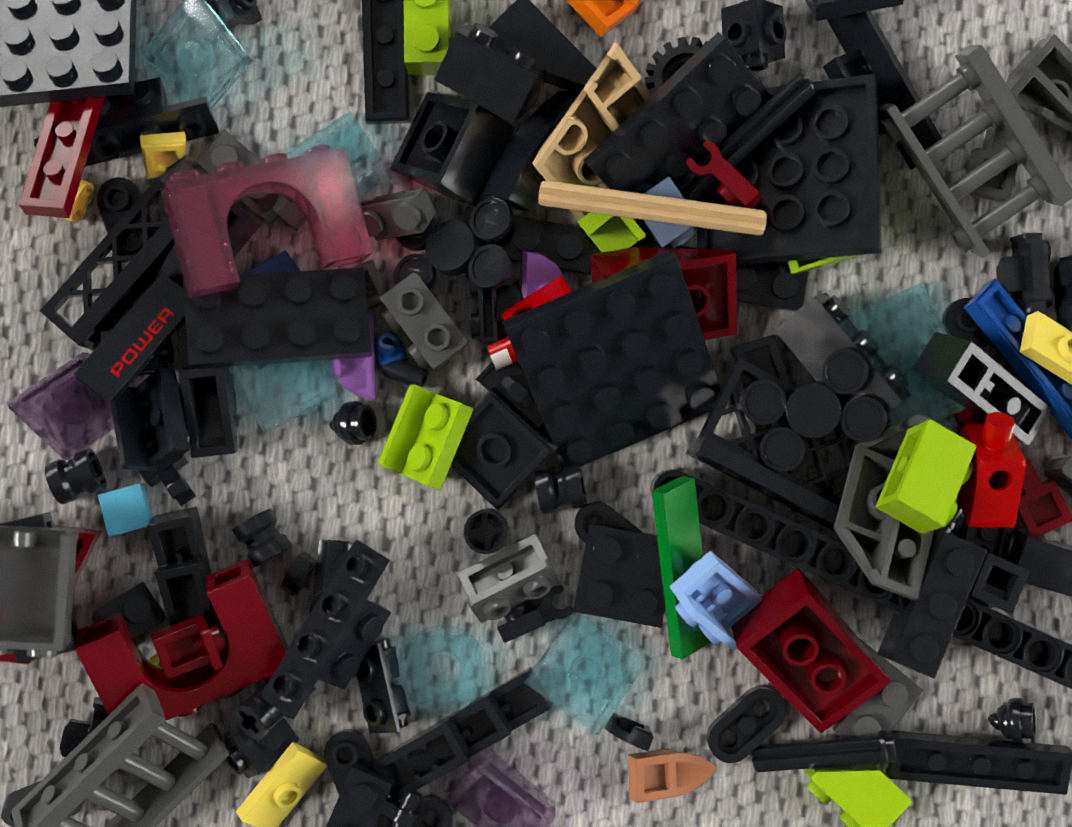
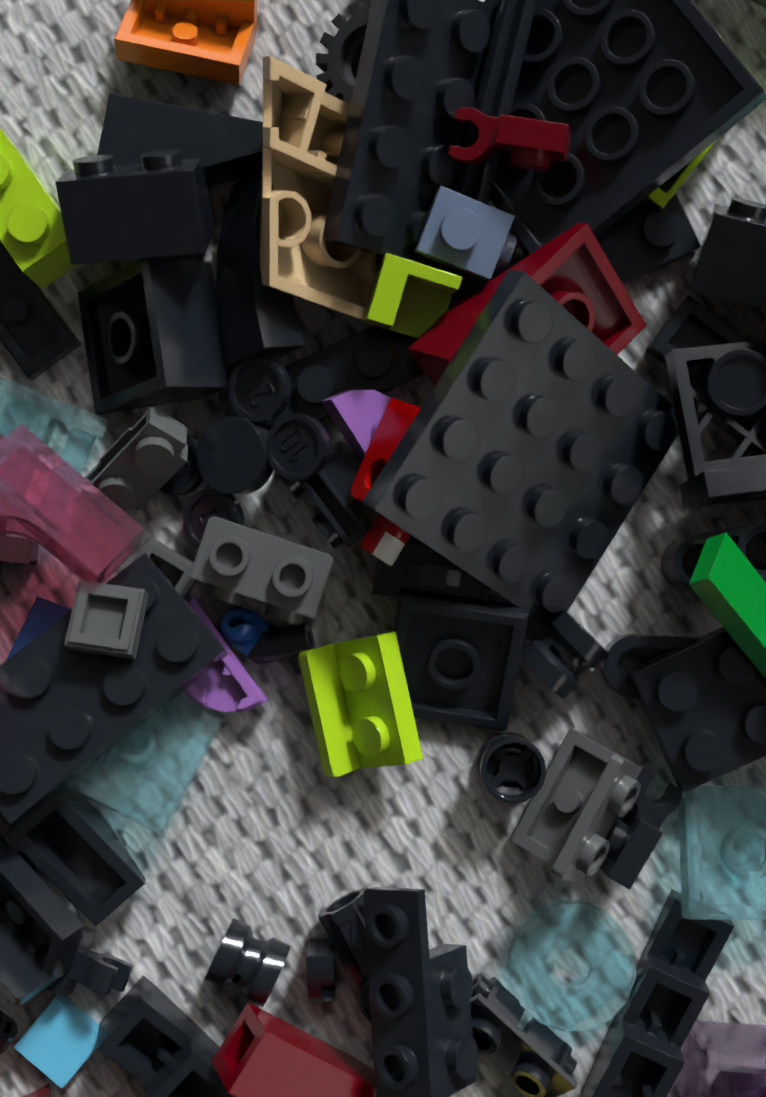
camera: 35 degrees left, 0 degrees up
(317, 289) = (106, 619): none -> dark grey tile
(354, 423) = (263, 746): black plate -> none
(652, 207) = (450, 235): tan axle -> none

